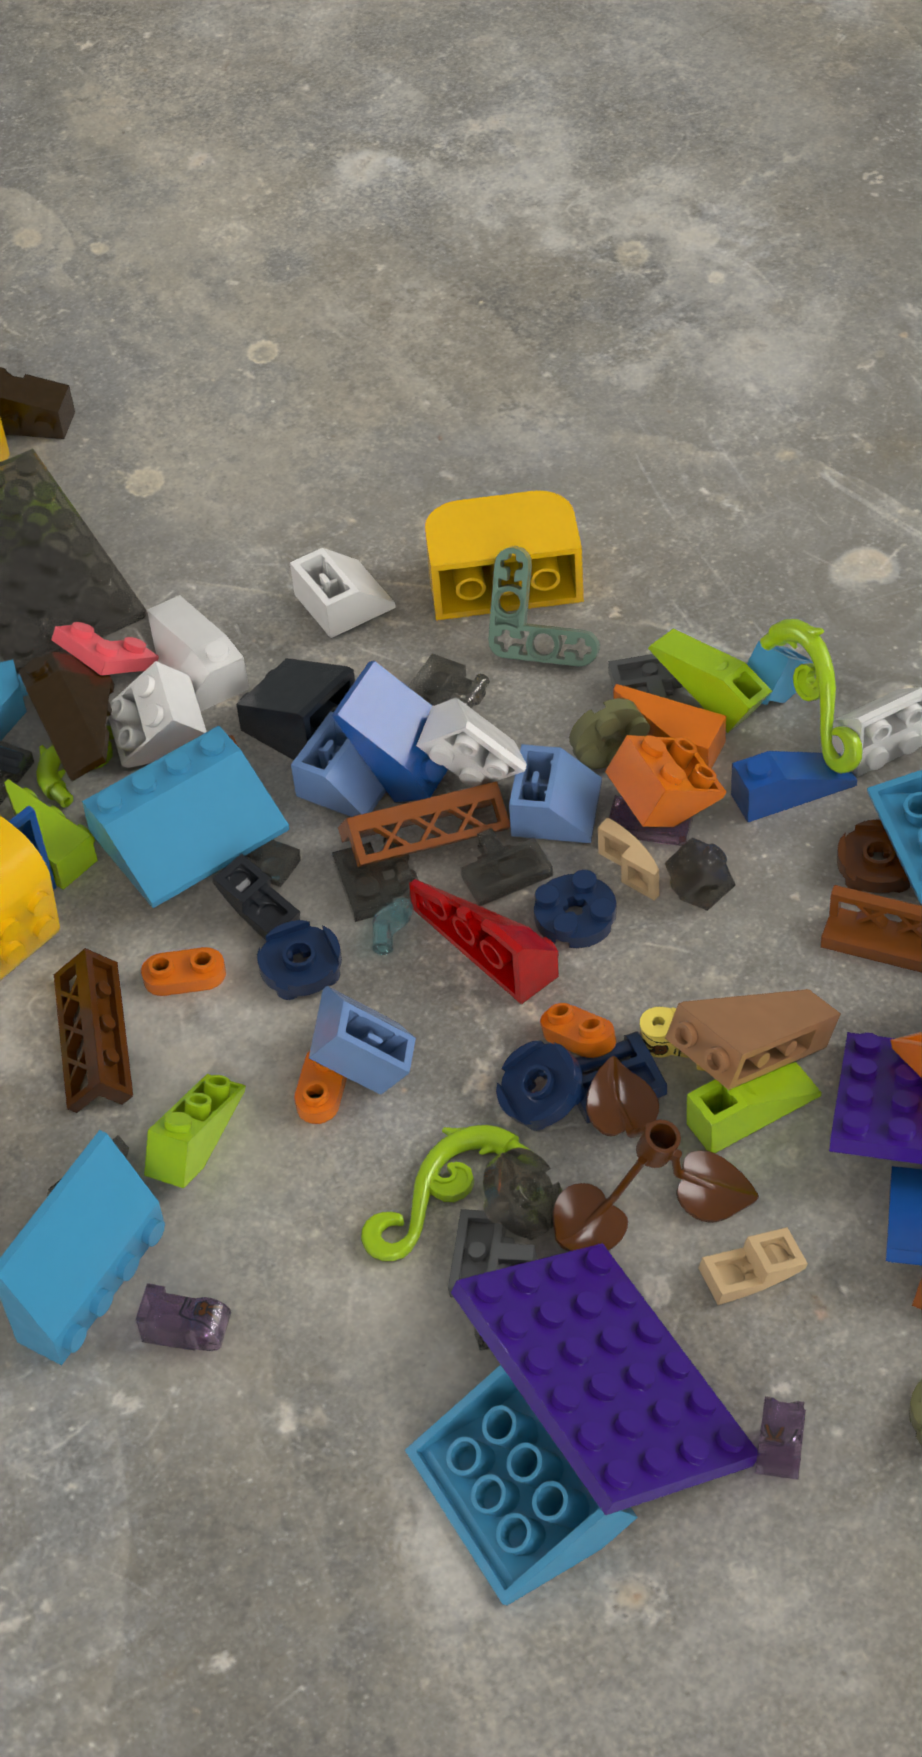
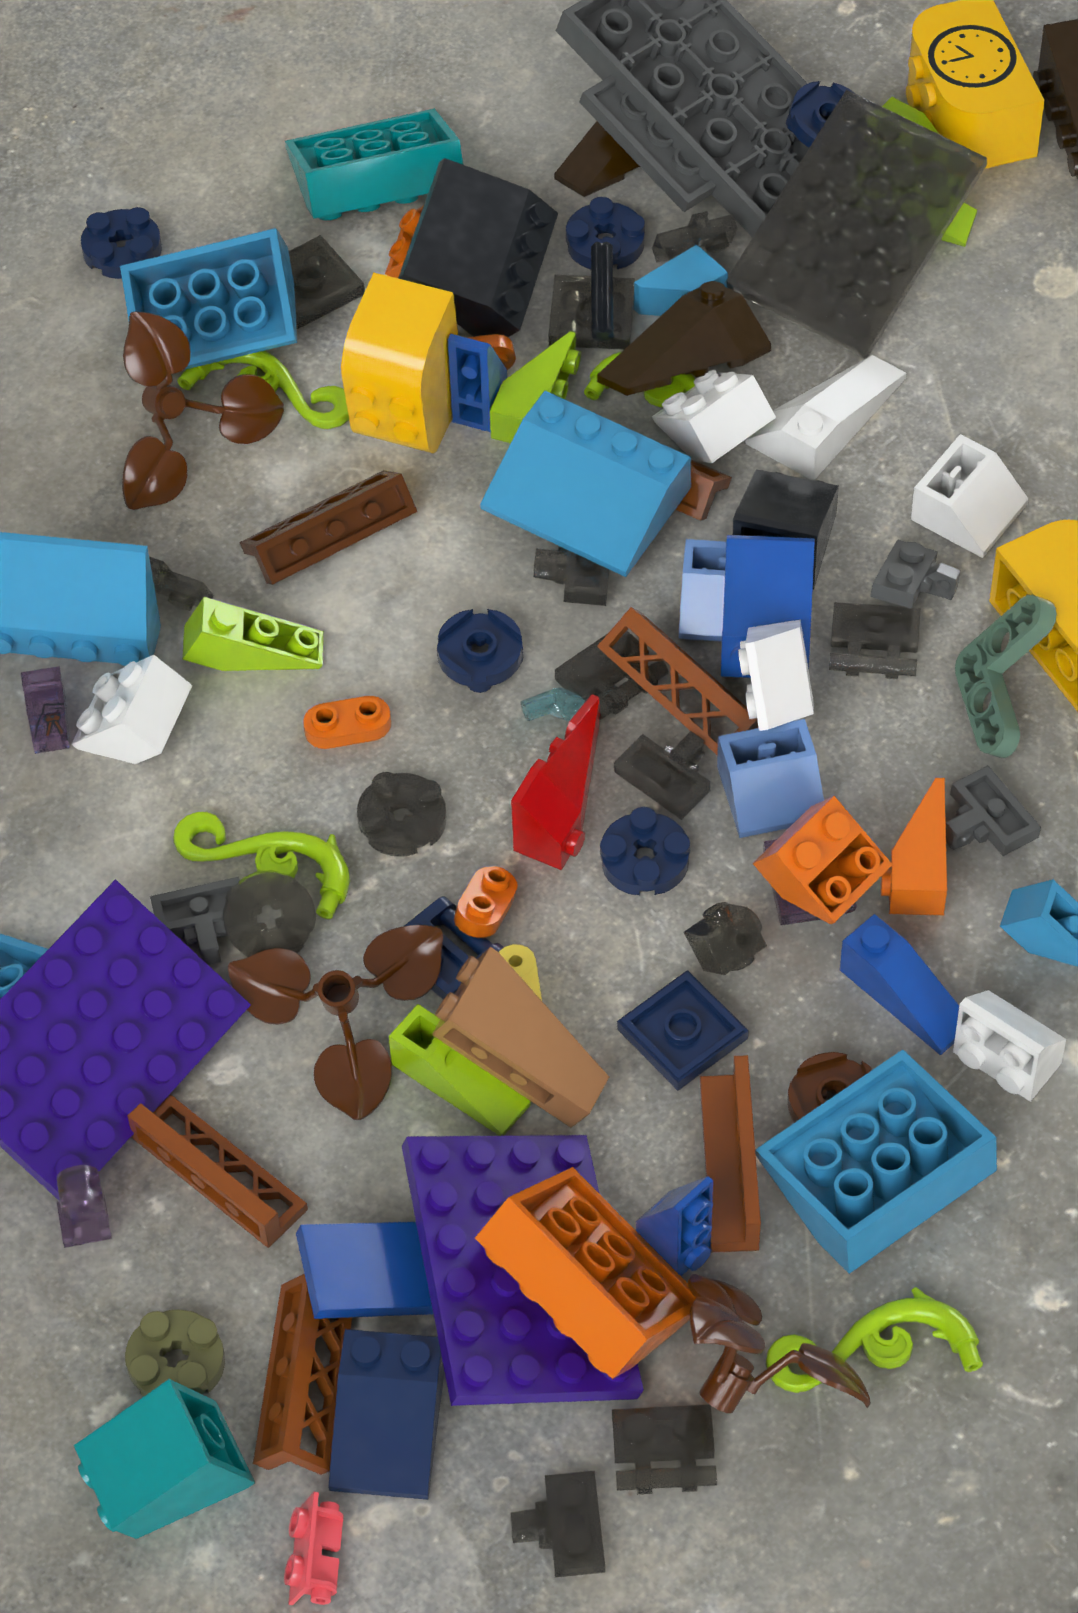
camera: 65 degrees right, 5 degrees up
(103, 655) = (771, 342): coral plate -> none
(183, 971) = (427, 563): orange plate -> none
(223, 1245) = (132, 711): none -> white slope
(253, 897) = (530, 582): black slope -> none
(360, 1042) = (391, 723): medium blue slope -> none
(398, 651) = (913, 570): none -> dark grey hinge
(447, 1049) = (396, 792): none -> clear smoke plate
(558, 1096) = (404, 890): dark blue plate -> none
(600, 735) = (868, 794): olive plate -> none
(636, 863) = (722, 879): tan slope -> none
(711, 676) = (995, 856): lime slope -> none
(755, 1267) = (274, 1137): tan slope -> none
(769, 935) = (682, 1030): none -> dark blue plate
(775, 1329) = (212, 1177): none -> dark orange fence
(822, 688) = (1042, 903): lime plant -> none

